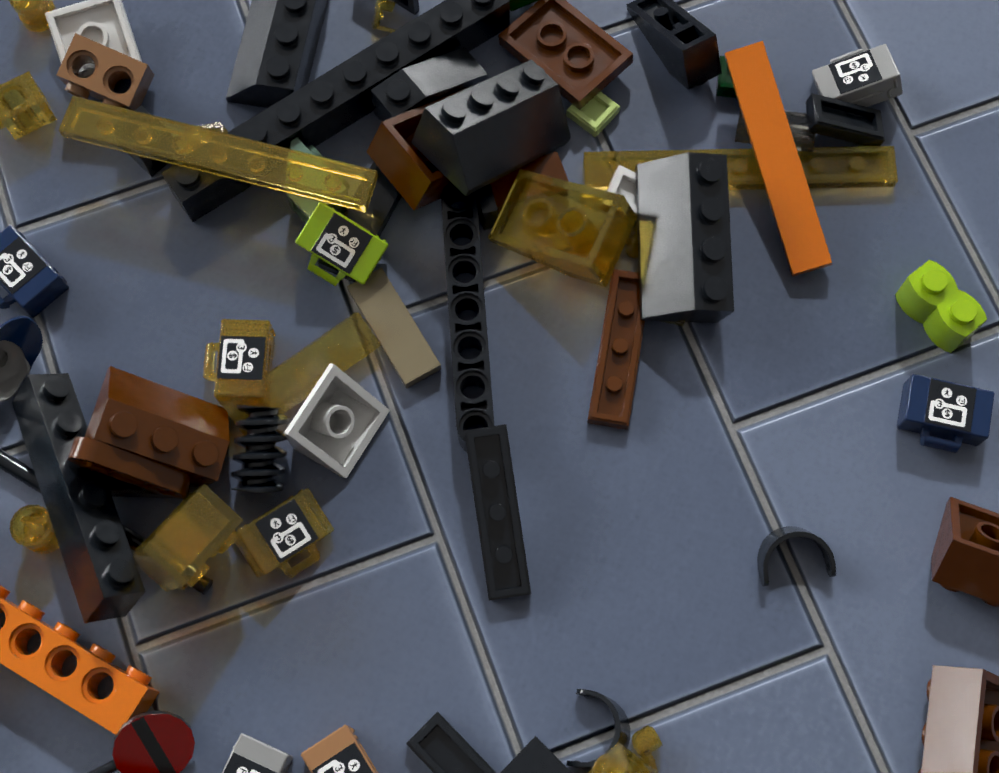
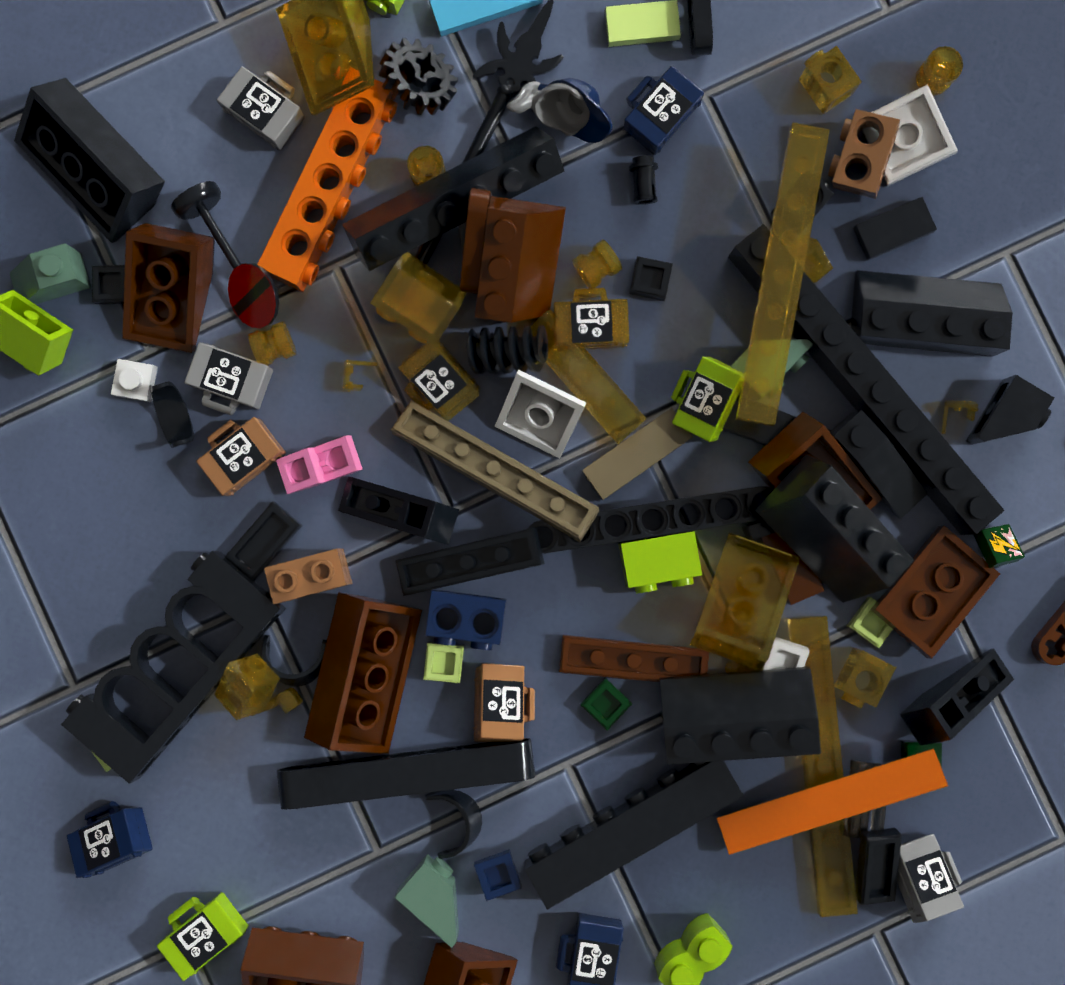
camera: 85 degrees right, 15 degrees up
(93, 296) = (644, 179): none -> black pin
(179, 352) = (597, 264): none -> clear yellow wheel
(188, 60) = (894, 228): none -> black tile
(203, 299) = (650, 278): none -> black tile
(215, 728) = (272, 344): none -> clear yellow wheel
(259, 641) = (348, 369): none -> clear yellow piece
(367, 684) = (319, 464): none -> bright pink slope
(394, 476) = (495, 471): none -> dark tan tile
(429, 591) = (398, 510): none -> black slope
(499, 701) = (308, 575): none -> medium nougat brick
(512, 309) = (660, 560): none -> lime brick
(553, 520) = (467, 608): none -> dark blue brick
(611, 554) = (443, 662): none -> yellowish green tile
(619, 648) = (362, 674): none -> reddish brown slope
(650, 105) = (878, 670): none -> clear yellow brick
(660, 492) = (501, 703): none -> medium nougat piece
(666, 380) = (606, 704): none -> dark green tile
(738, 610) = (405, 773): none -> black beam
(805, 363) = (630, 829): none -> black brick
(854, 508) = (497, 875): none -> dark blue plate
(879, 583) = (432, 897): none -> sand green slope

